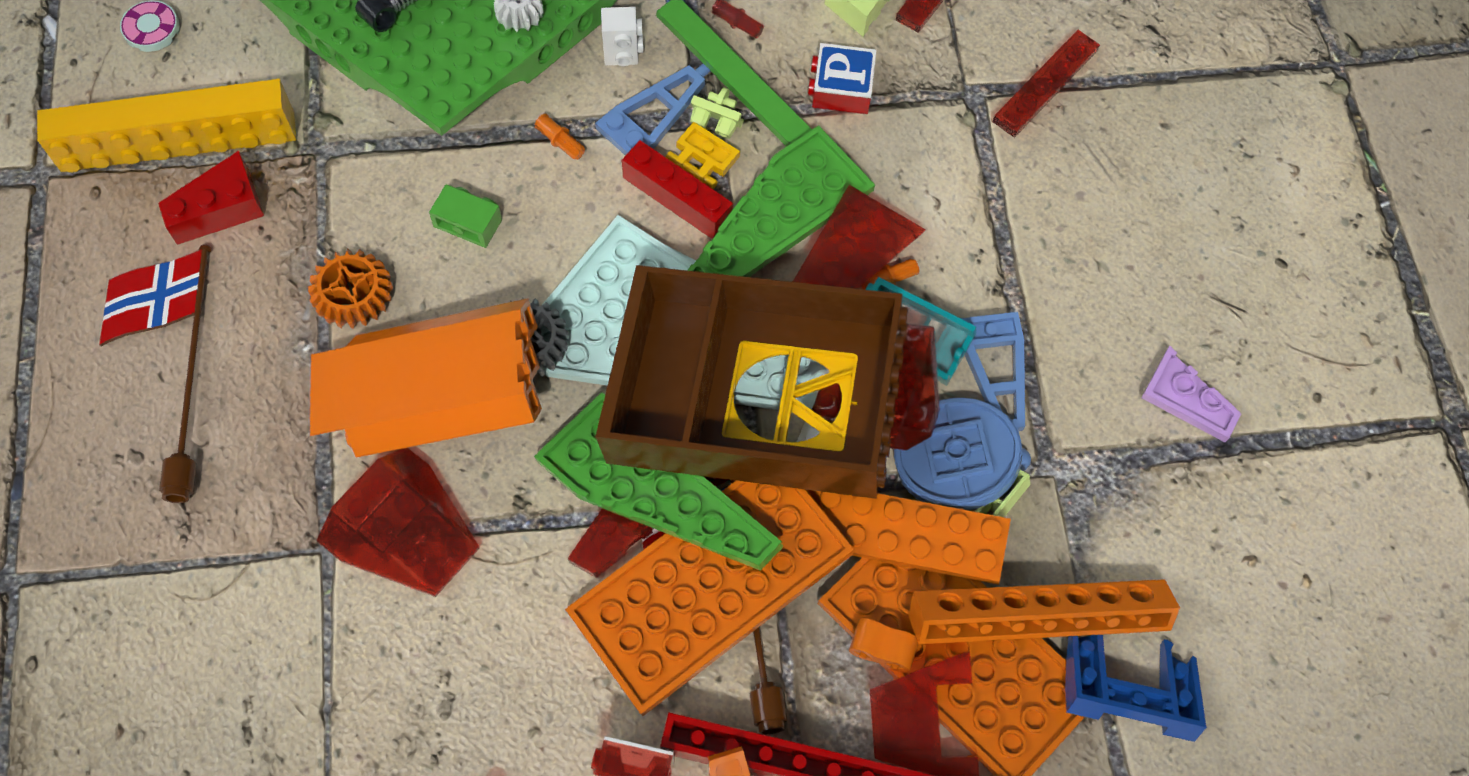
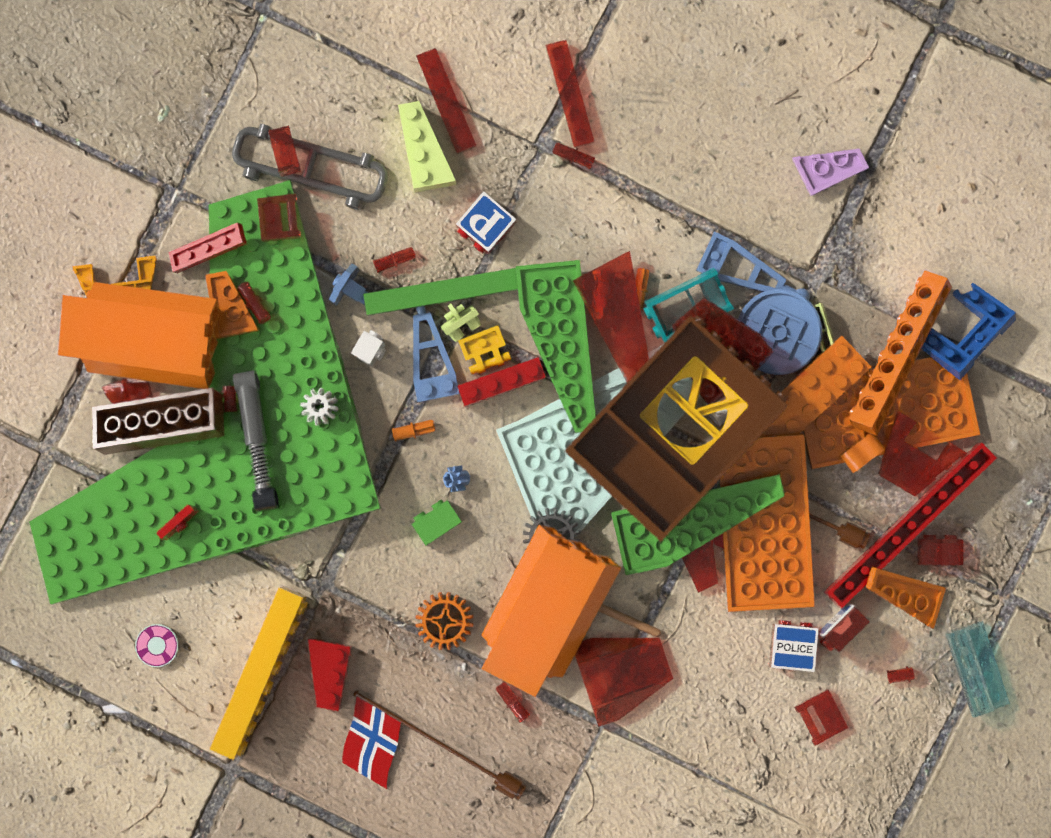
camera: 55 degrees left, 20 degrees up
(291, 423) = (512, 702): none -> clear red axle
(479, 490) = (630, 620): none -> medium nougat piece
(532, 206) = (456, 478): none -> medium blue gear
(570, 722) = (793, 646): none -> piece
(984, 123) = (573, 155): none -> clear red axle

